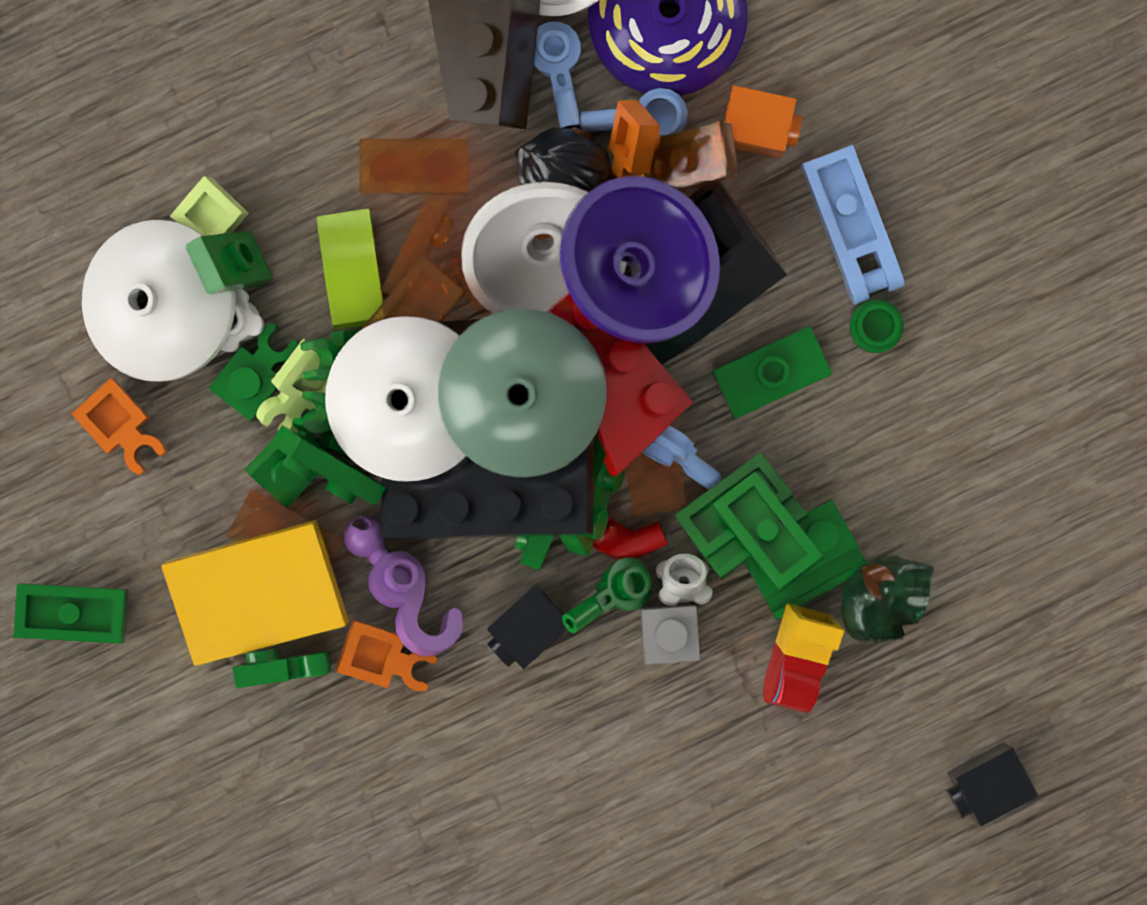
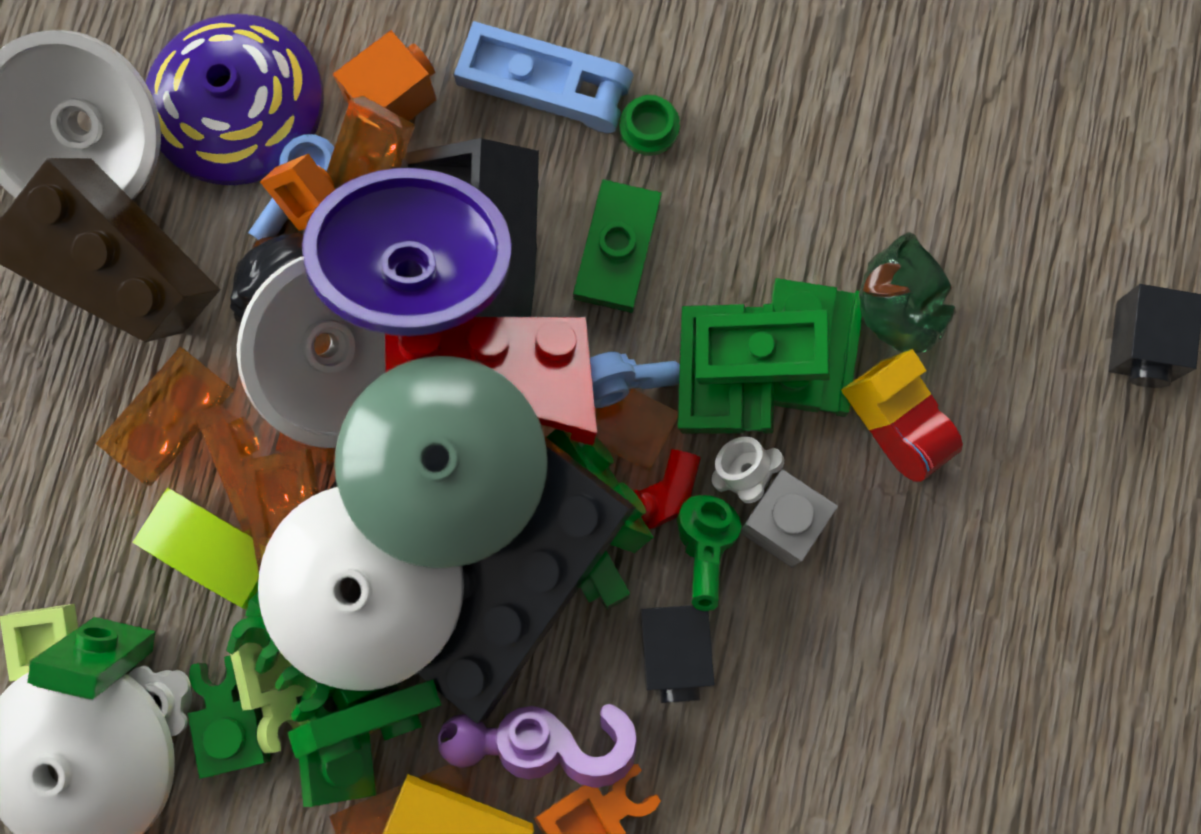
camera: 45 degrees left, 10 degrees down
(555, 56) = (182, 216): light blue plate -> none

